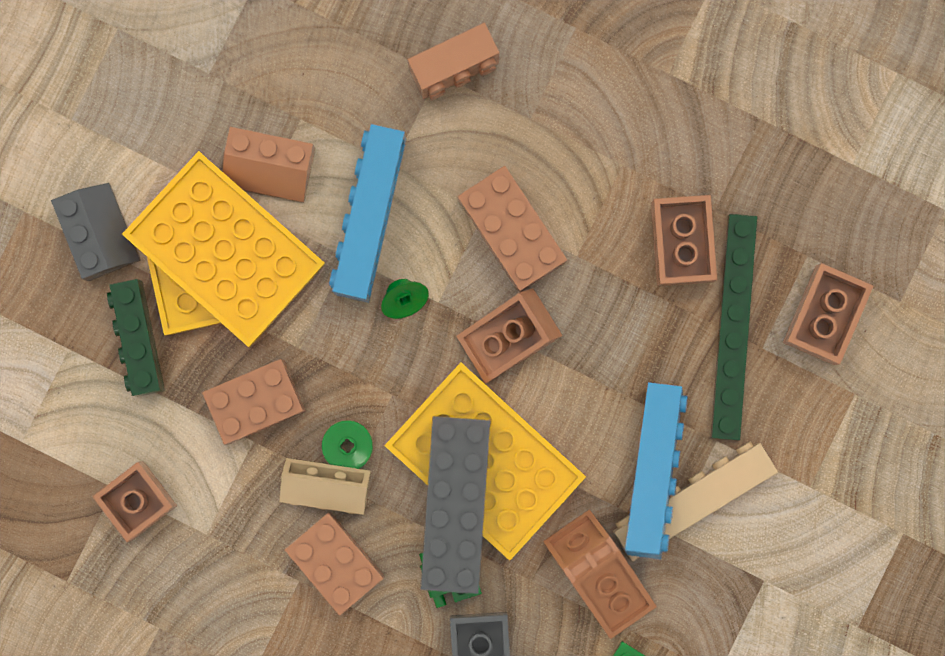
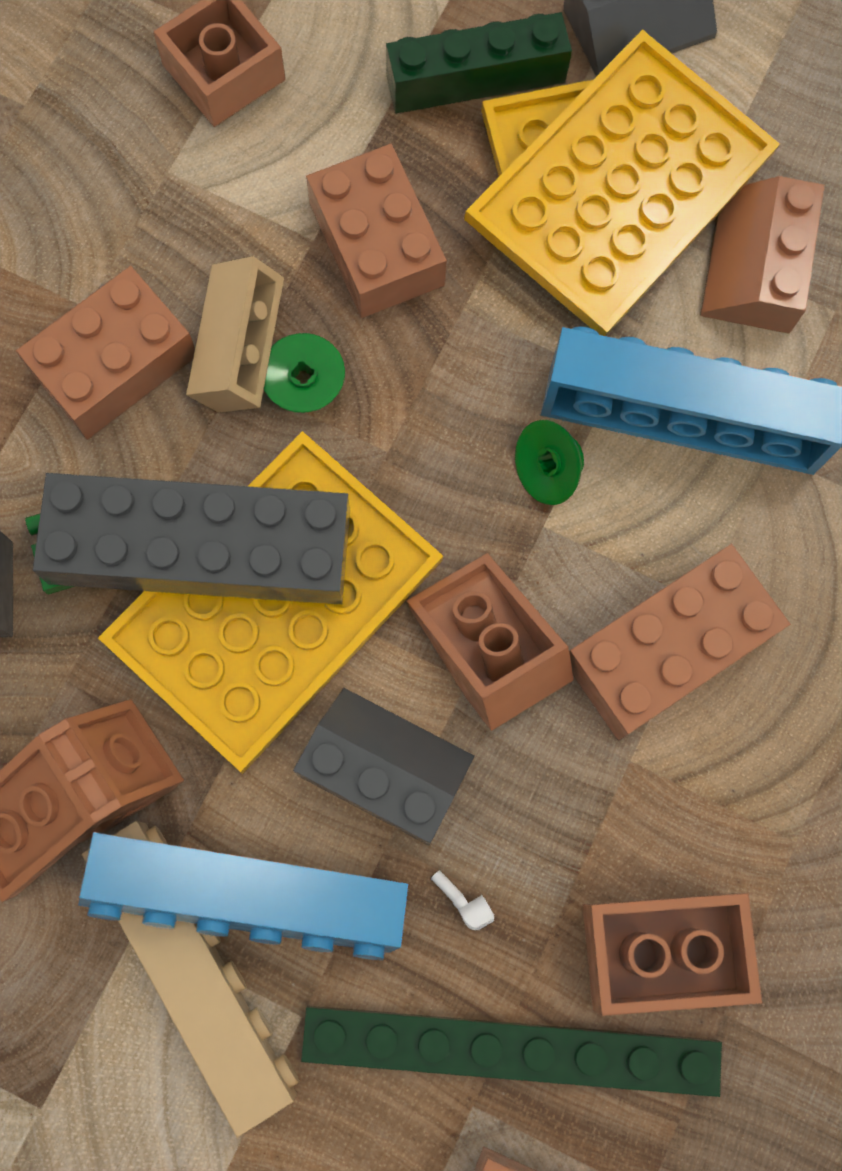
camera: 85 degrees right, 10 degrees down
(581, 395) = (384, 765): none -> dark grey slope
(662, 346) = (475, 913): none -> white hand

